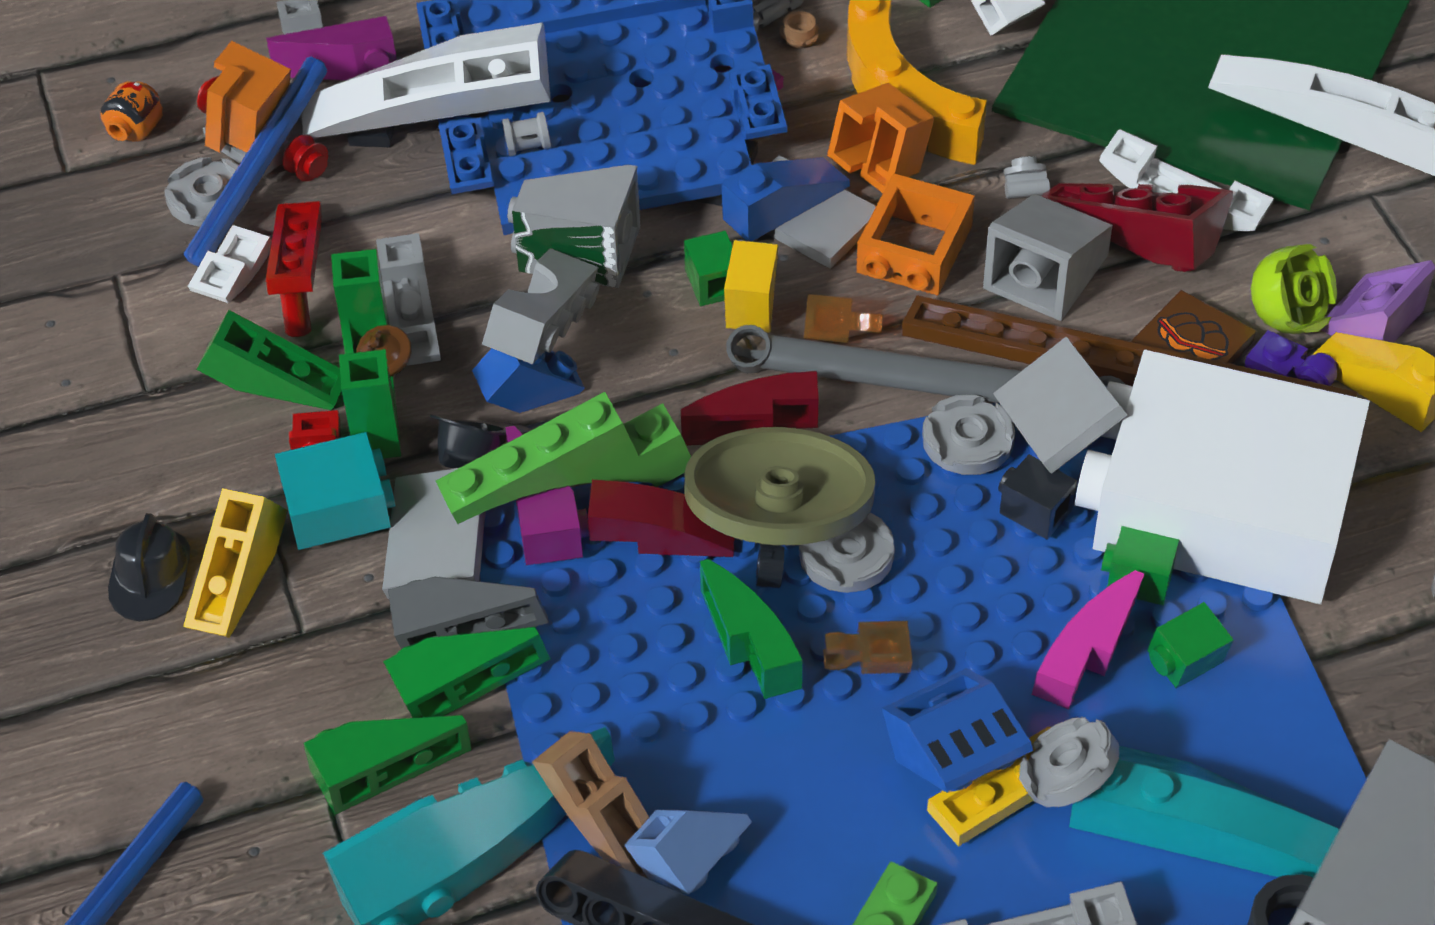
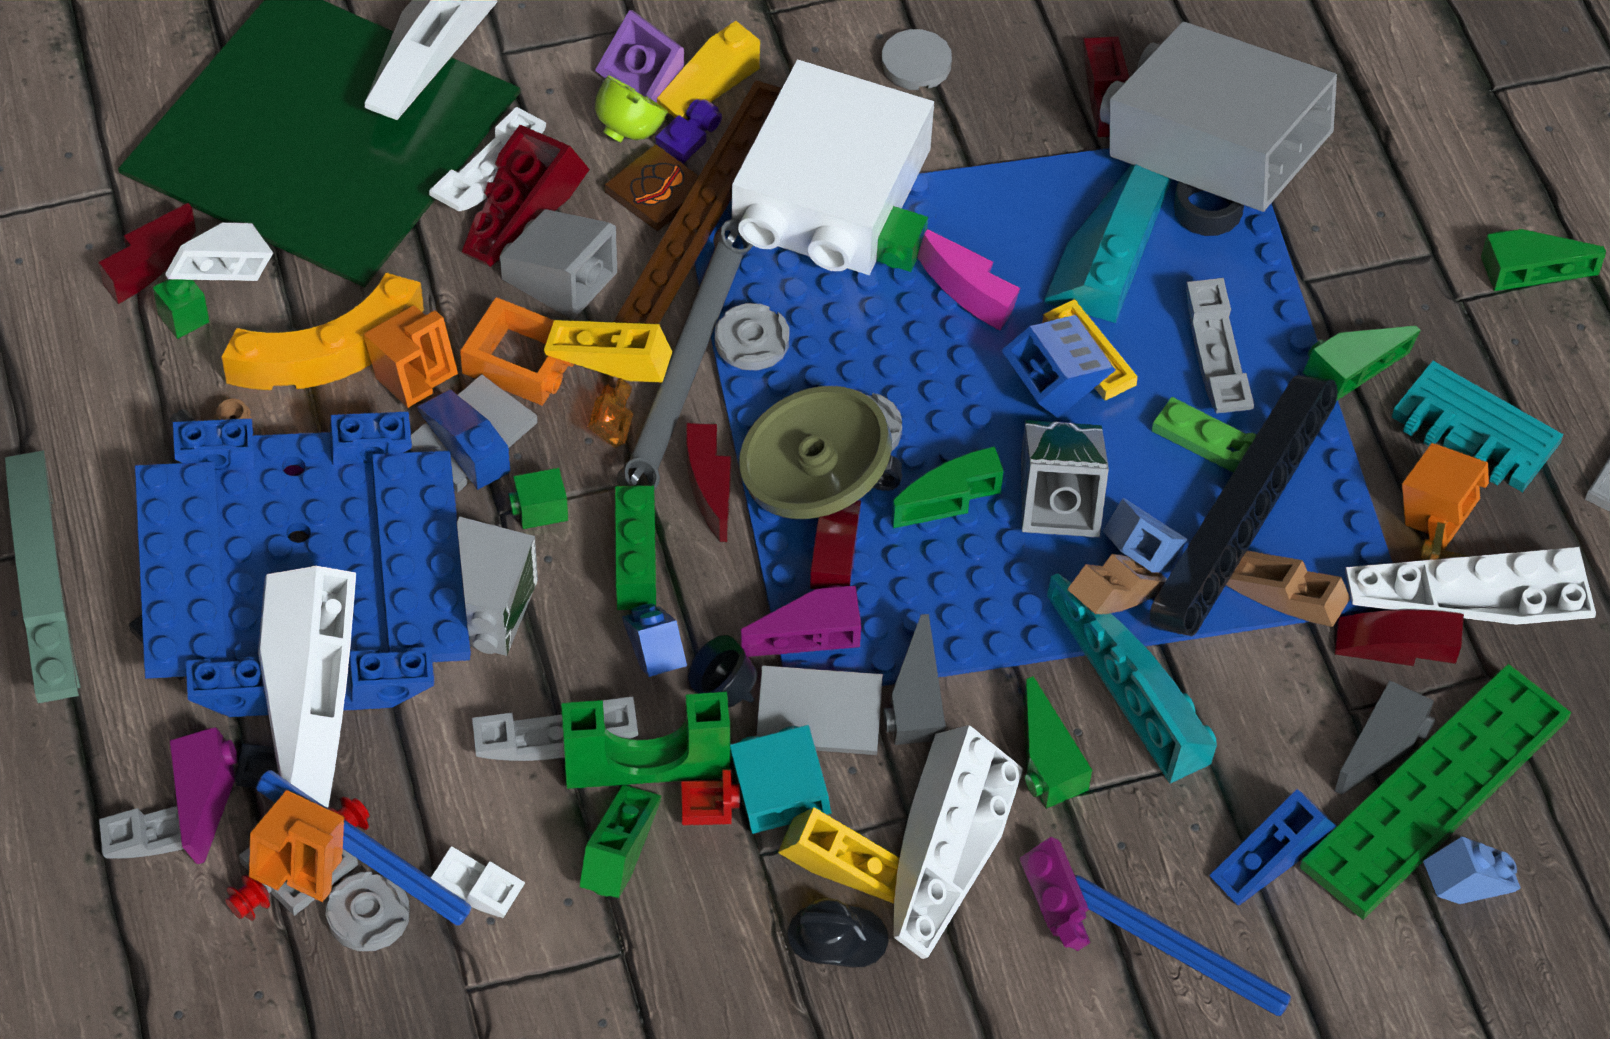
camera: 90 degrees left, 5 degrees up
(131, 111) = (250, 978): orange head -> none
(168, 770) = (1057, 892): none -> magenta hinge
(256, 660) = (950, 832): none -> white wedge
(294, 262) = (488, 814): red piece -> none
(393, 340) = (636, 731): reddish brown hat -> none
(456, 669) = (974, 690): green slope -> none
(526, 134) = (373, 618): light grey bush -> none
(532, 321) = (566, 602): light grey arch -> none
(568, 452) = (784, 572): bright green arch -> none
(618, 344) = (635, 546): none -> green arch
(750, 284) = (581, 459): yellow slope -> none
(780, 747) = (1063, 478): none -> light grey slope
(877, 646) = (968, 409): clear orange plate -> none
(905, 292) = (612, 348): none -> yellow slope
(1025, 178) = (456, 271): light grey plate -> none
(1036, 496) = (829, 293): black brick -> none
(1059, 405) = (762, 255): light grey tile -> none
(1069, 762) = (1096, 292): light grey tile -> none
(1189, 645) = (974, 222): green brick -> none

